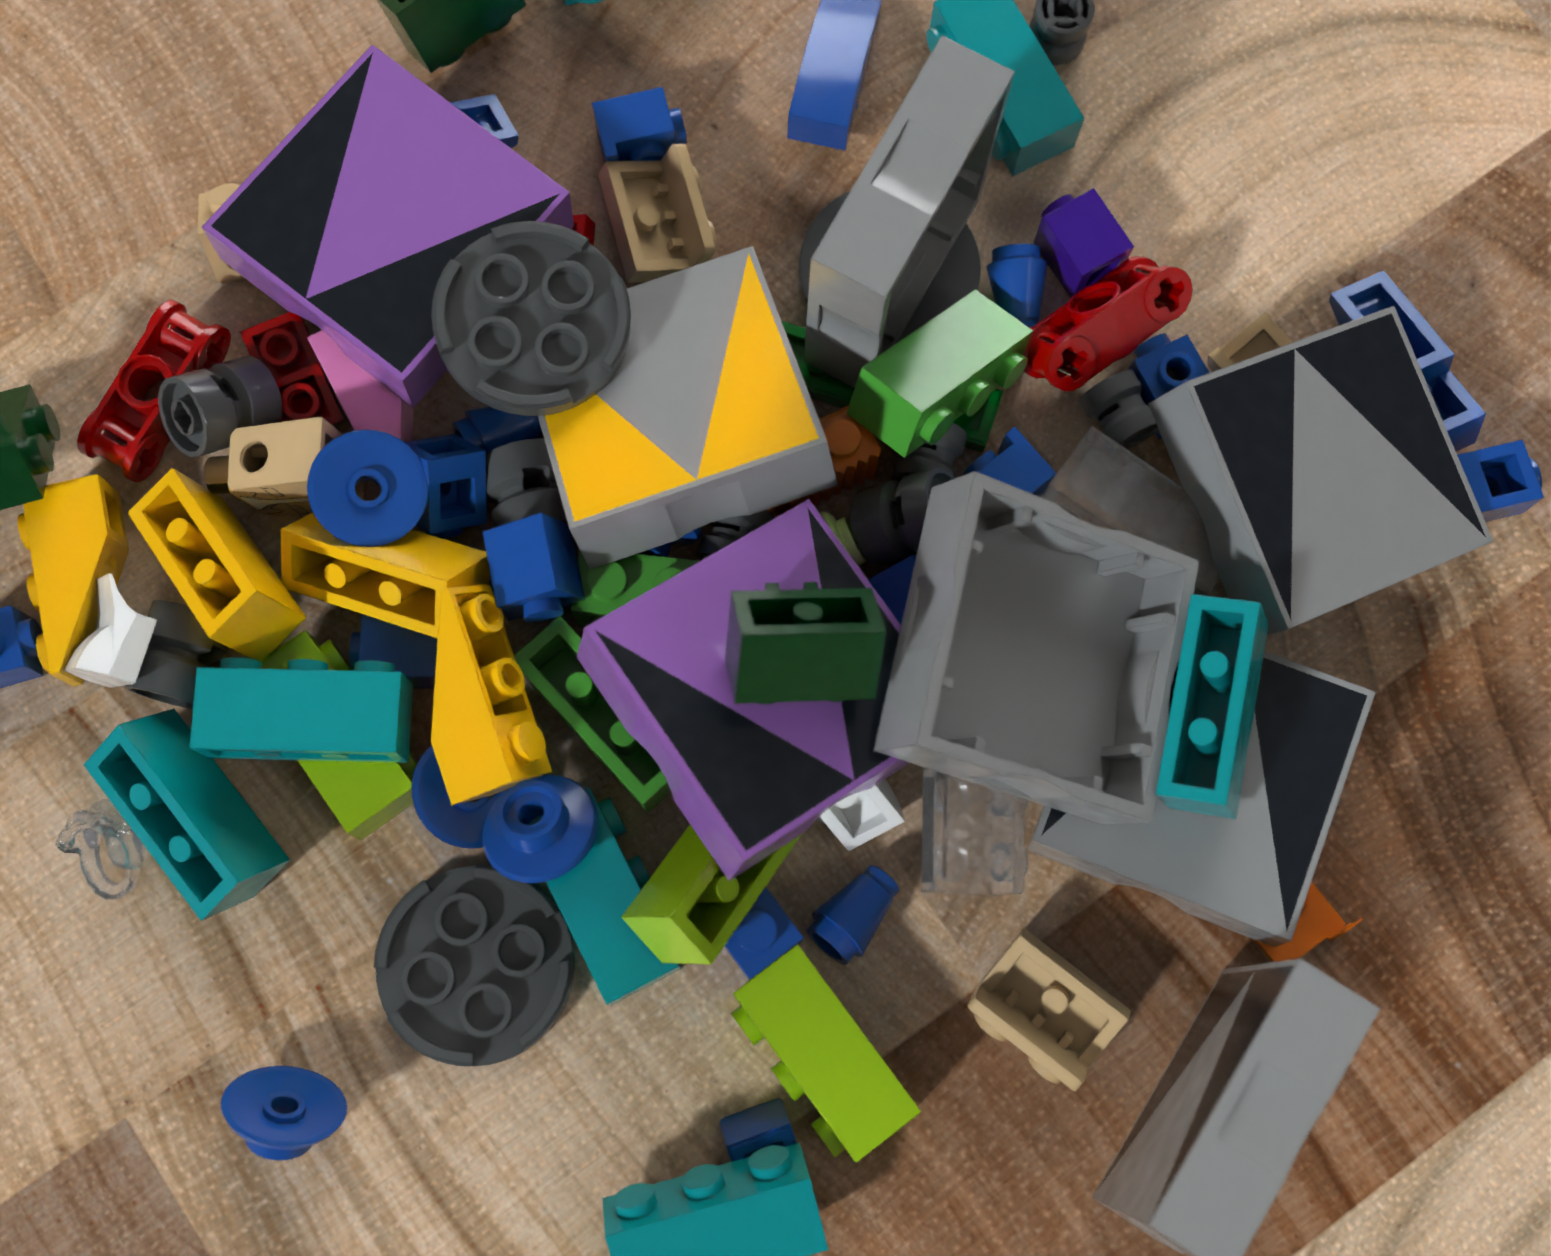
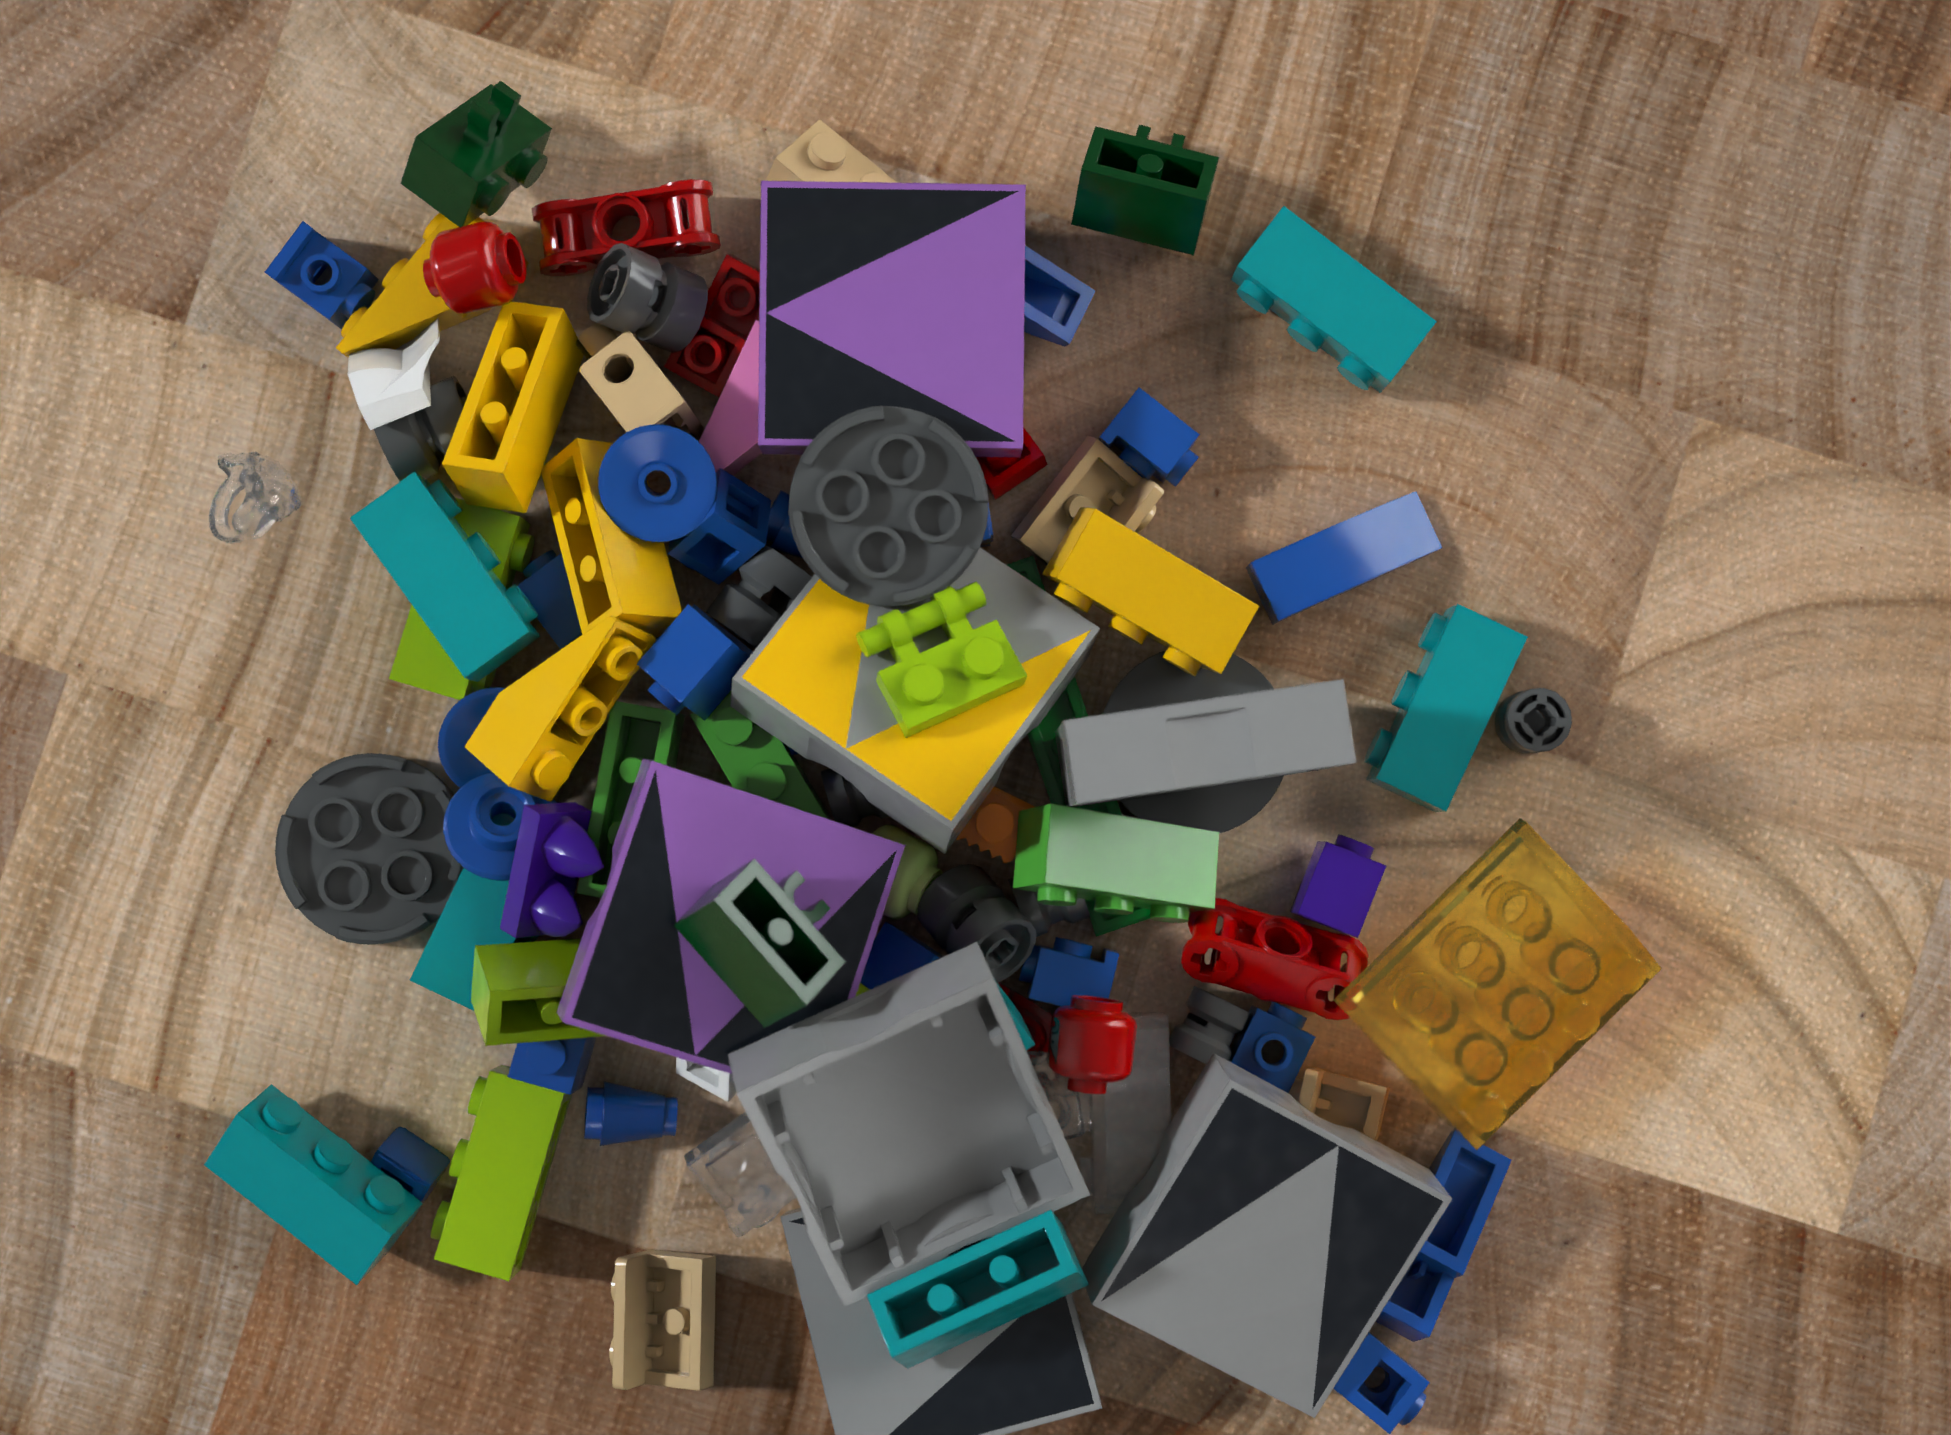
camera: 55 degrees right, 10 degrees up
(80, 507) = (474, 267): none -> red head
(186, 813) = (309, 543): teal brick -> none
(283, 1110) = (157, 794): blue piece -> none
(593, 797) = (545, 870): none -> dark purple tile
(702, 365) = (949, 676): none -> lime plate
(750, 198) = (1148, 592): none -> yellow brick
(1018, 280) = (1257, 862): blue cone -> none
(1076, 480) = (1091, 1043): none -> red head
(1246, 174) = (1498, 984): none -> clear yellow slope

